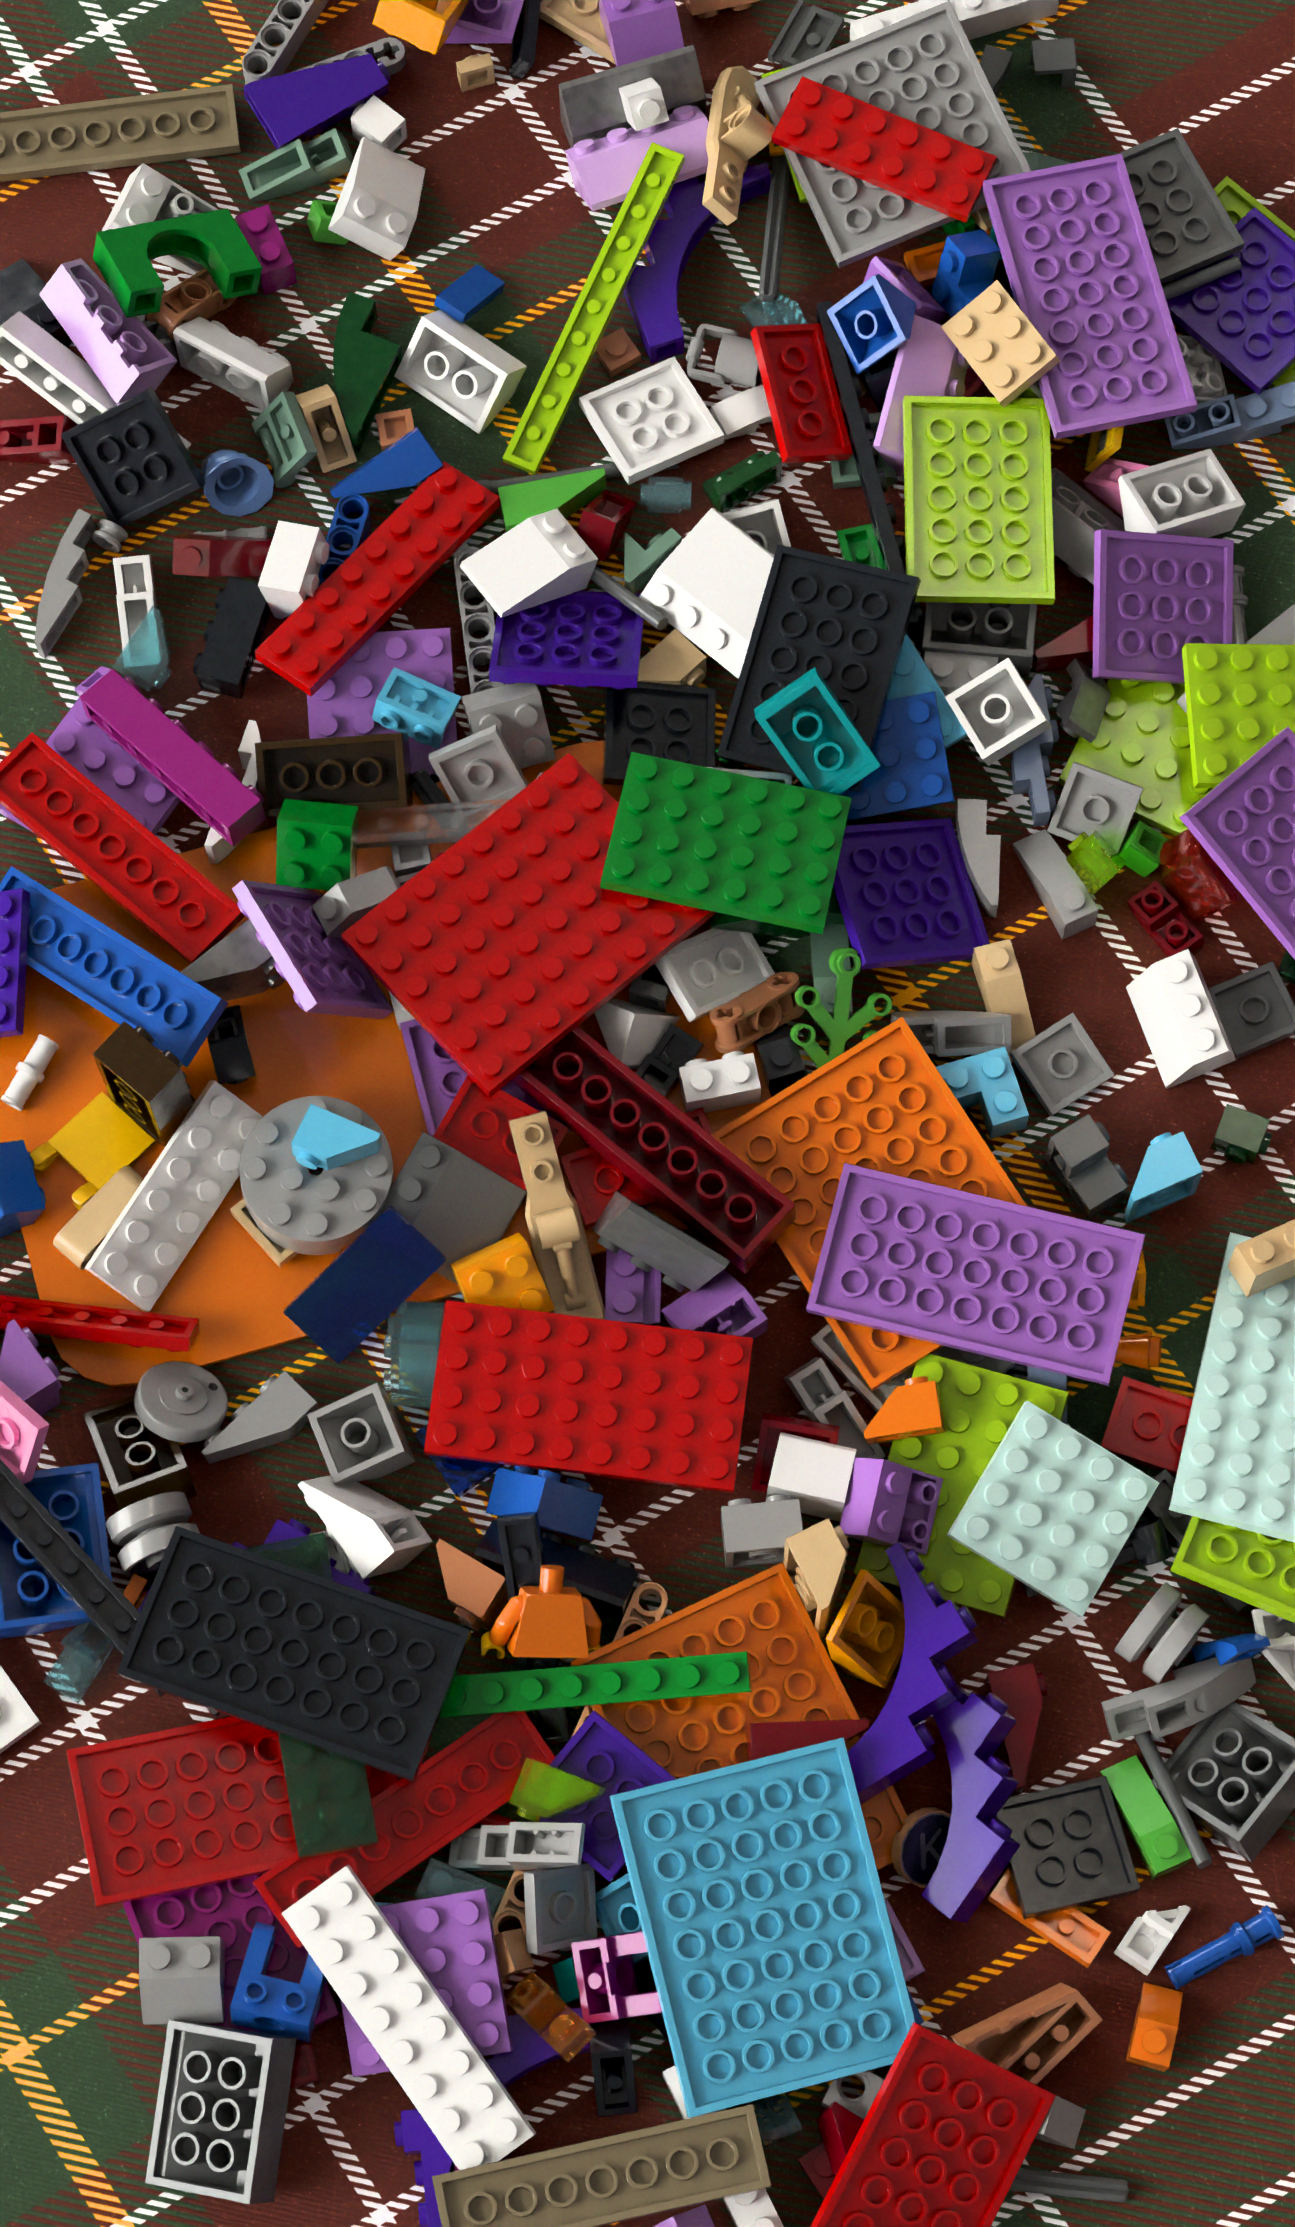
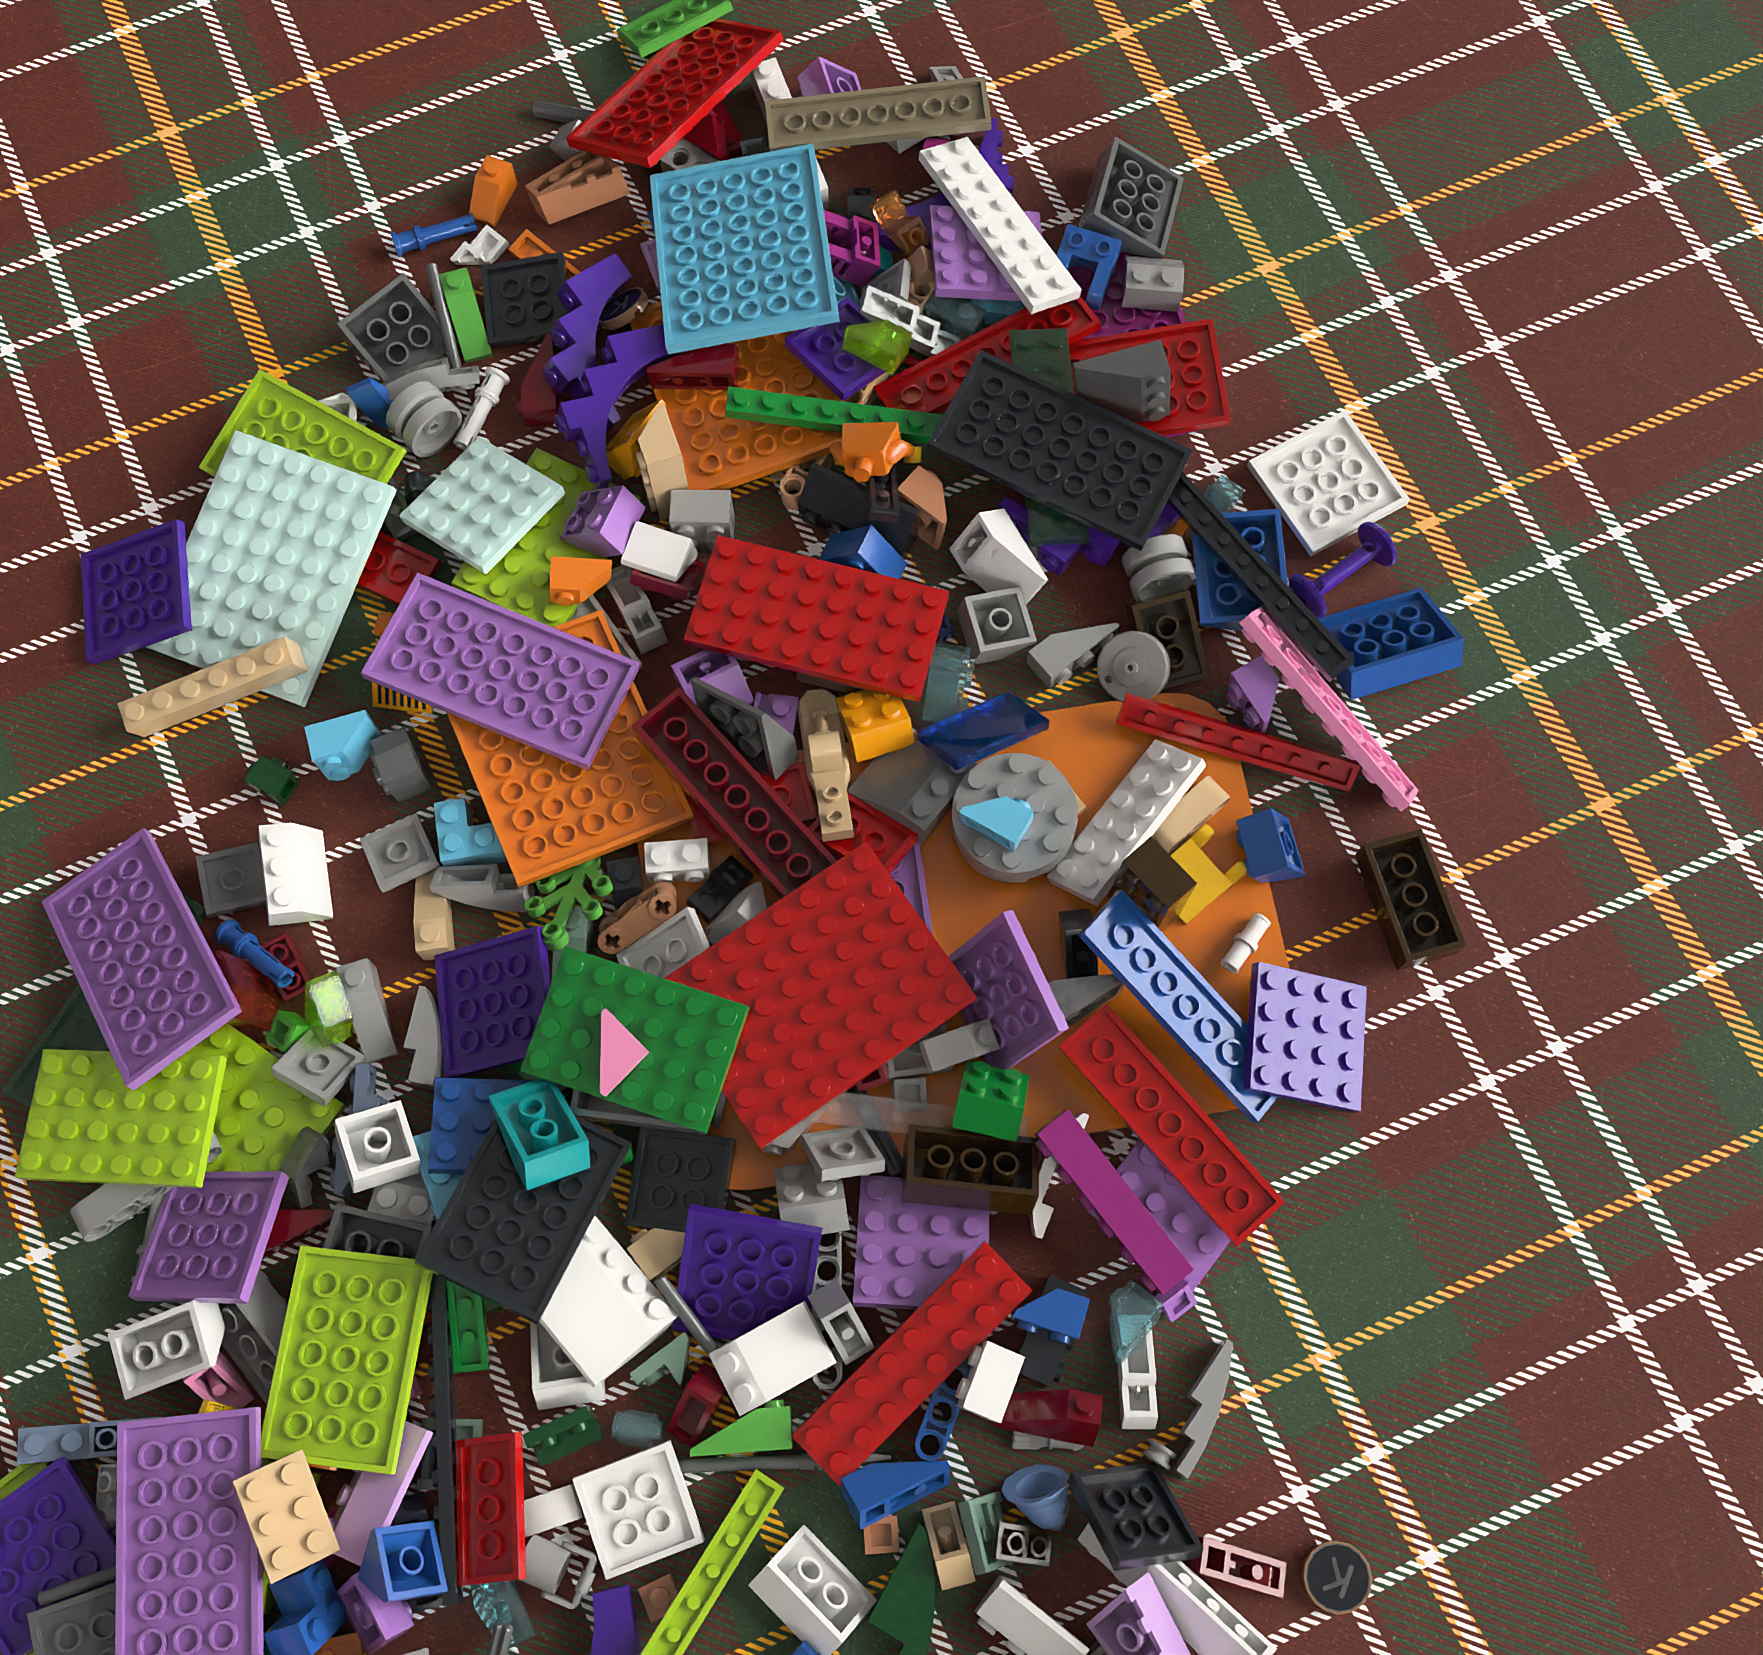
camera: 175 degrees left, 0 degrees up
(206, 1752) = (1127, 382): none -> dark grey slope
(228, 638) = (1055, 1312): none -> blue slope
(251, 432) = (1022, 1544): none -> dark brown slope
(415, 707) = (891, 1225): medium azure bracket -> none
(461, 605) = (841, 1321): none -> light grey slope
(739, 817) = (618, 1052): none -> bright pink tile
(1092, 1691) = (486, 398): none -> white pin
(1215, 930) = (246, 947): none -> blue pin

